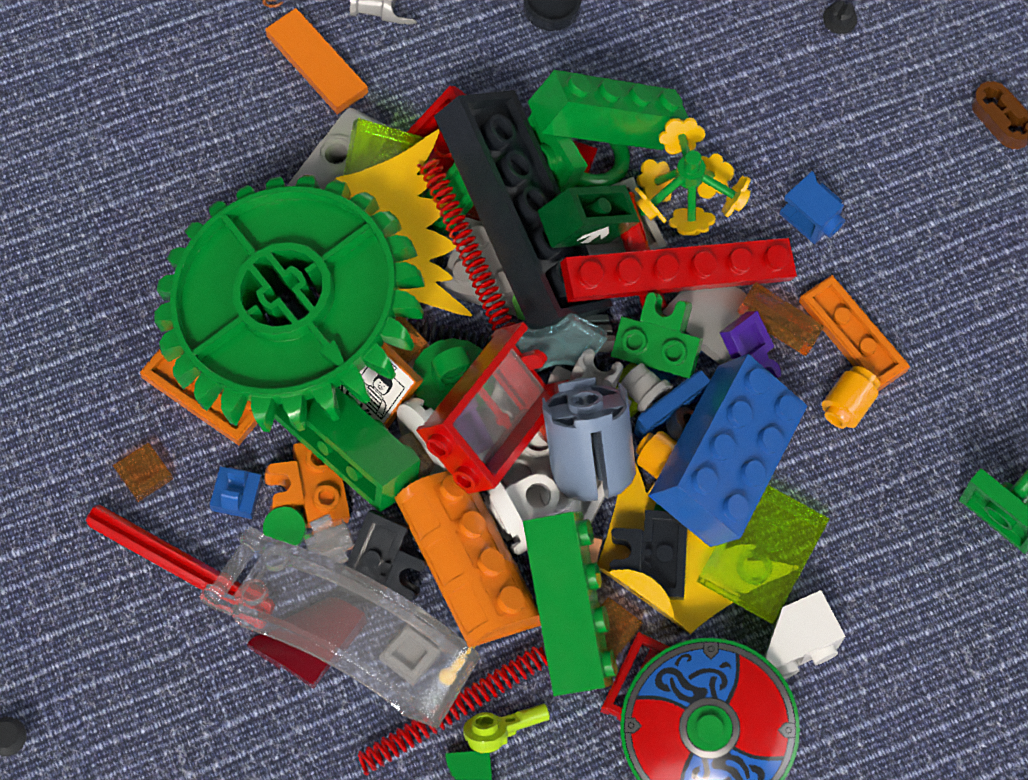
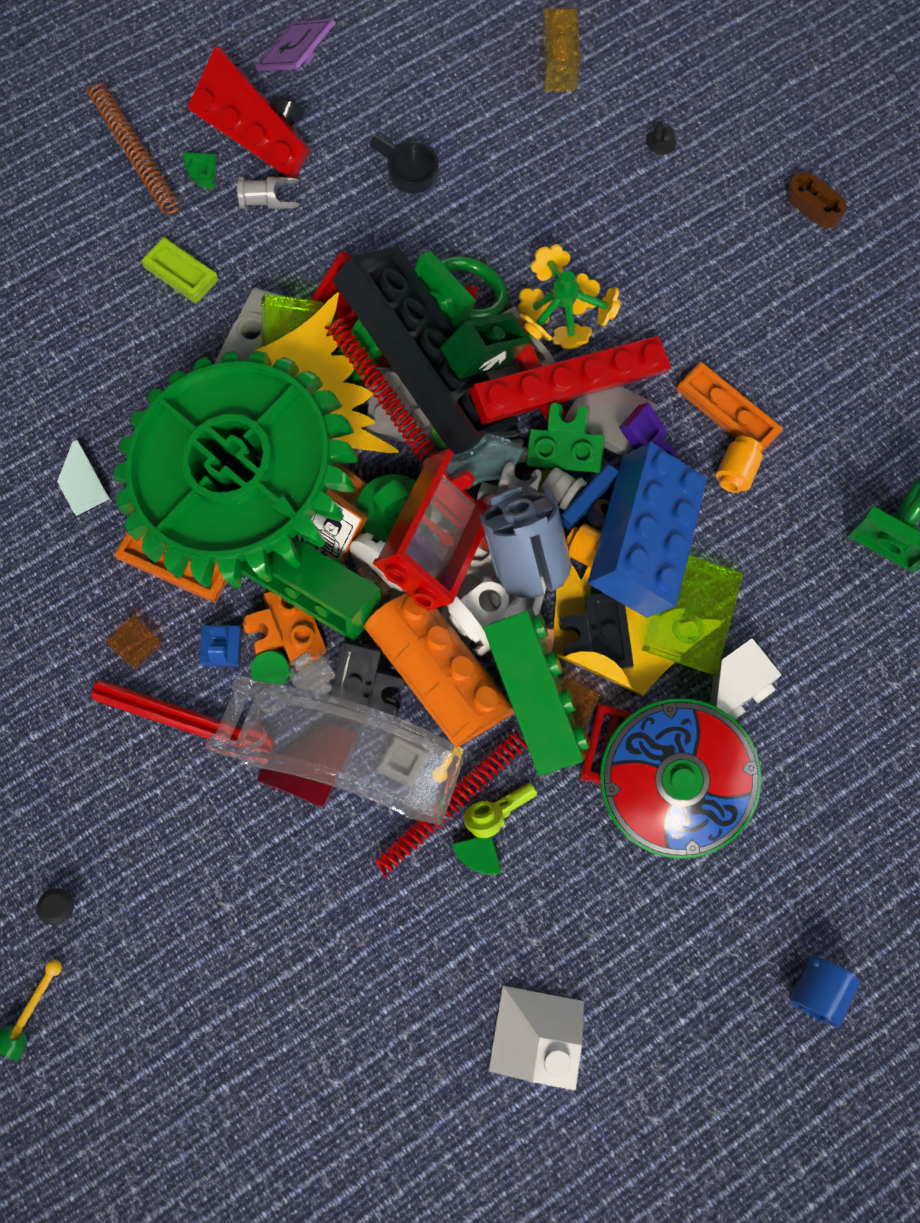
camera: 10 degrees left, 5 degrees up
(118, 286) = (80, 481): none -> light aqua tile
(270, 72) = (179, 270): none -> lime tile
(316, 61) = (218, 253): orange tile -> none
(604, 109) = (479, 249): green brick -> none
(782, 319) = (668, 407): clear orange tile -> none
(813, 209) = (674, 307): blue window -> none

